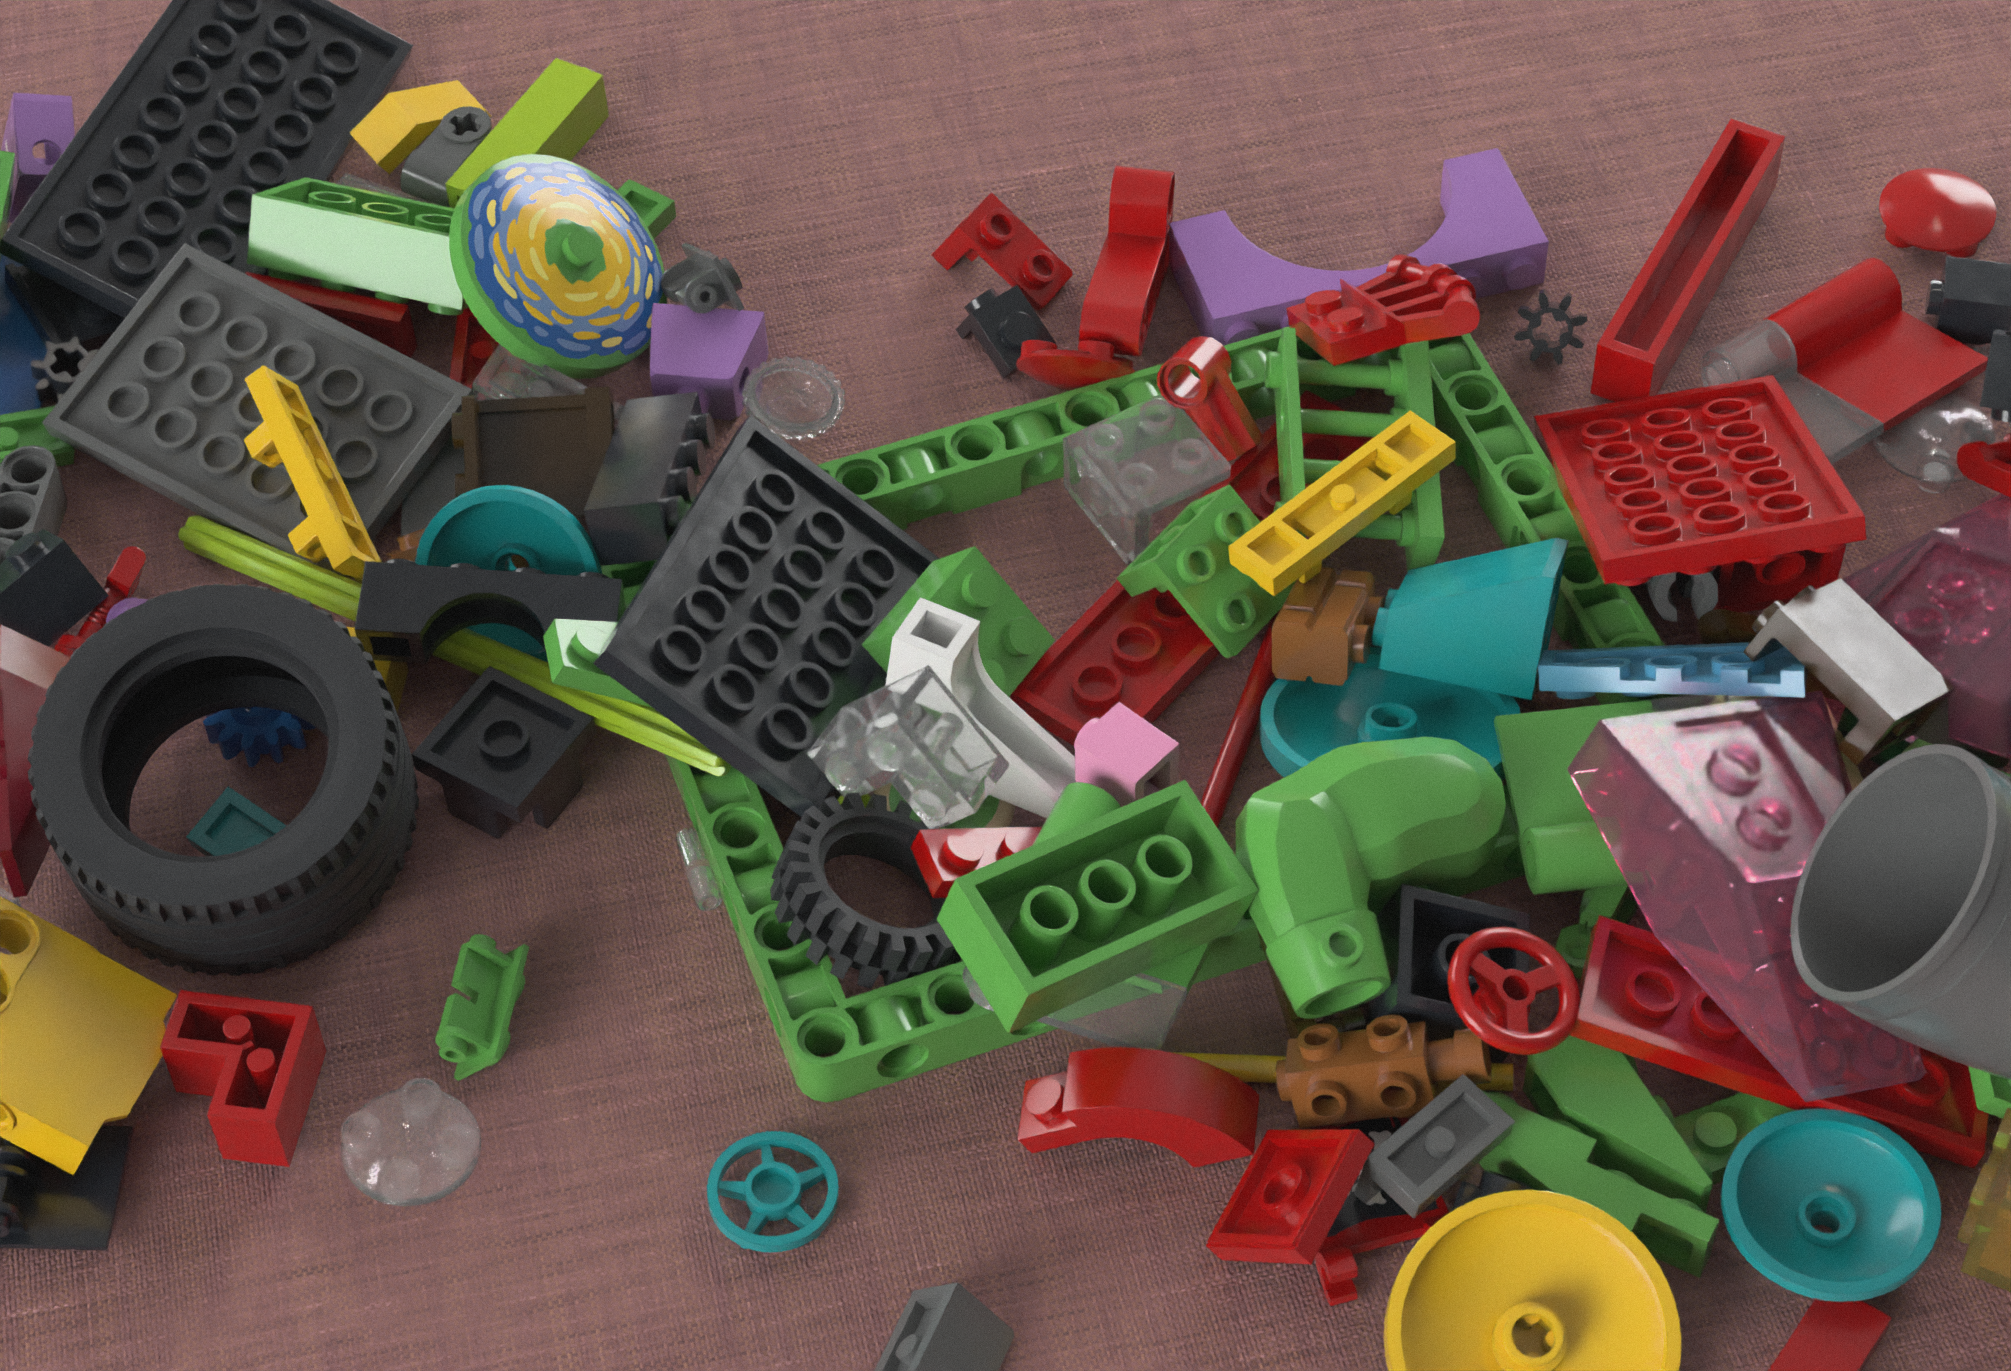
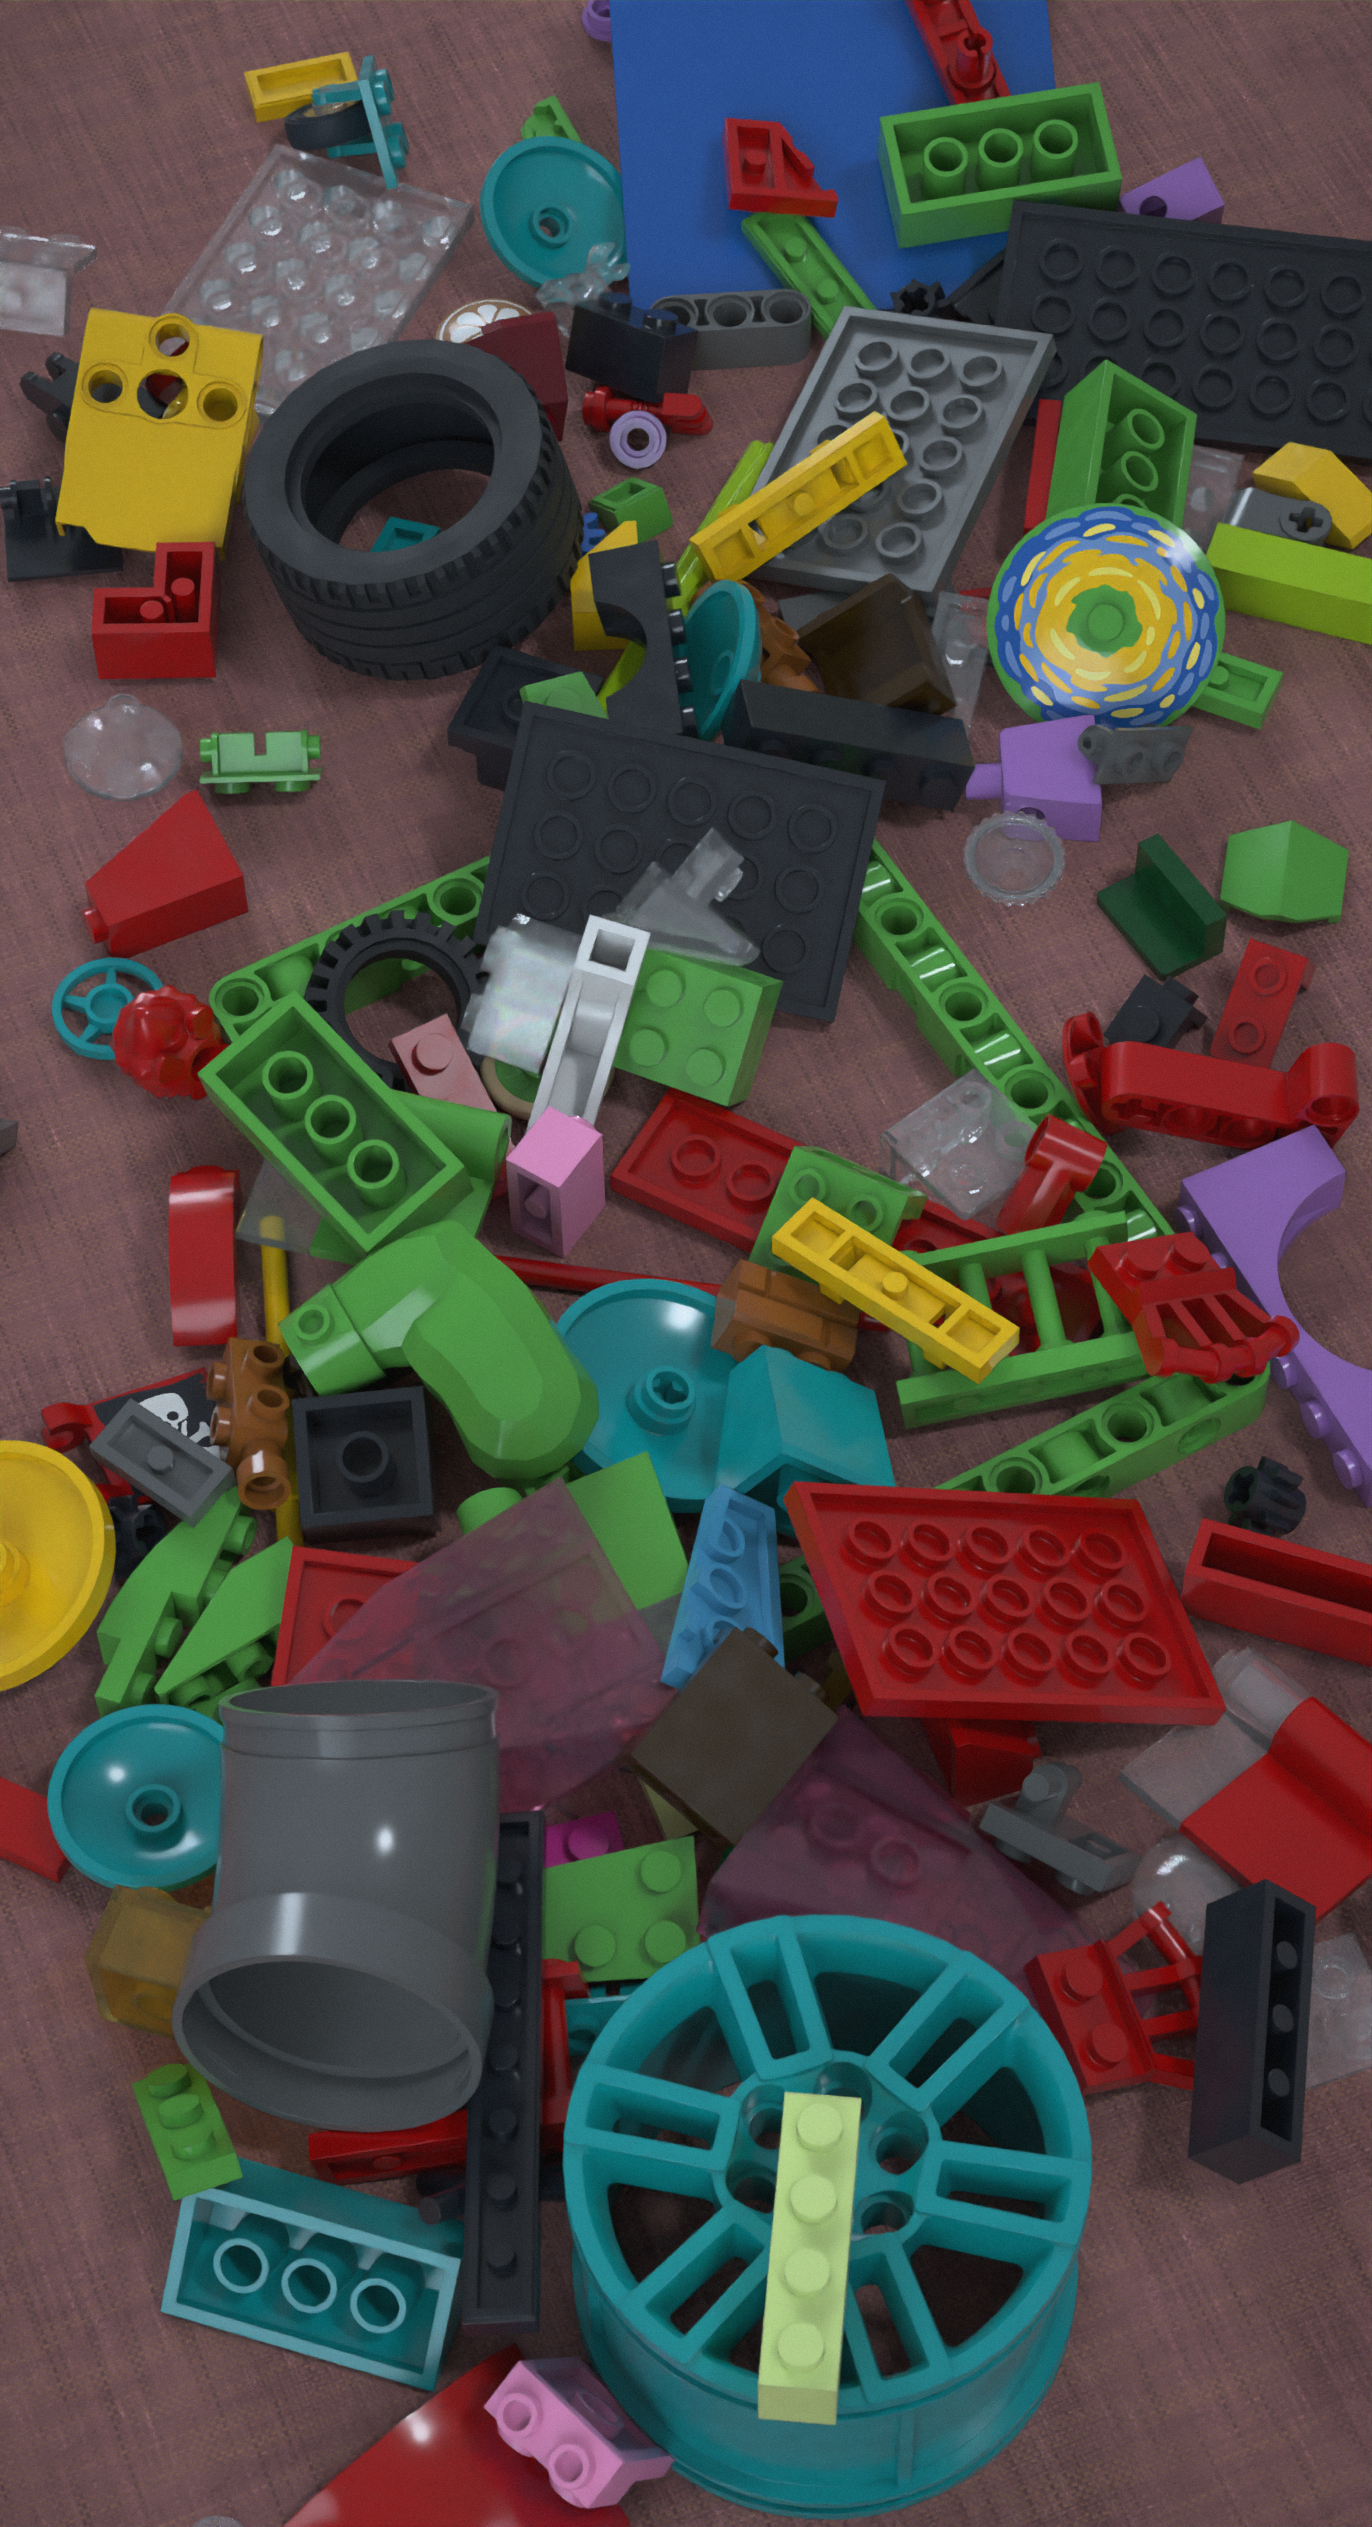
camera: 80 degrees right, 5 degrees up
(619, 1110) = (165, 883): none -> red slope
(851, 589) = (679, 908): none -> clear piece
(853, 229) = (1284, 874): none -> bright green slope
(869, 1108) = (166, 1041): none -> red animal
(875, 306) = (1165, 912): none -> dark green panel
(1290, 1195) = (113, 1363): red tile -> none
(1504, 997) = (319, 1507): red piece -> none
(1905, 495) = (1038, 1828): none -> dark grey plate

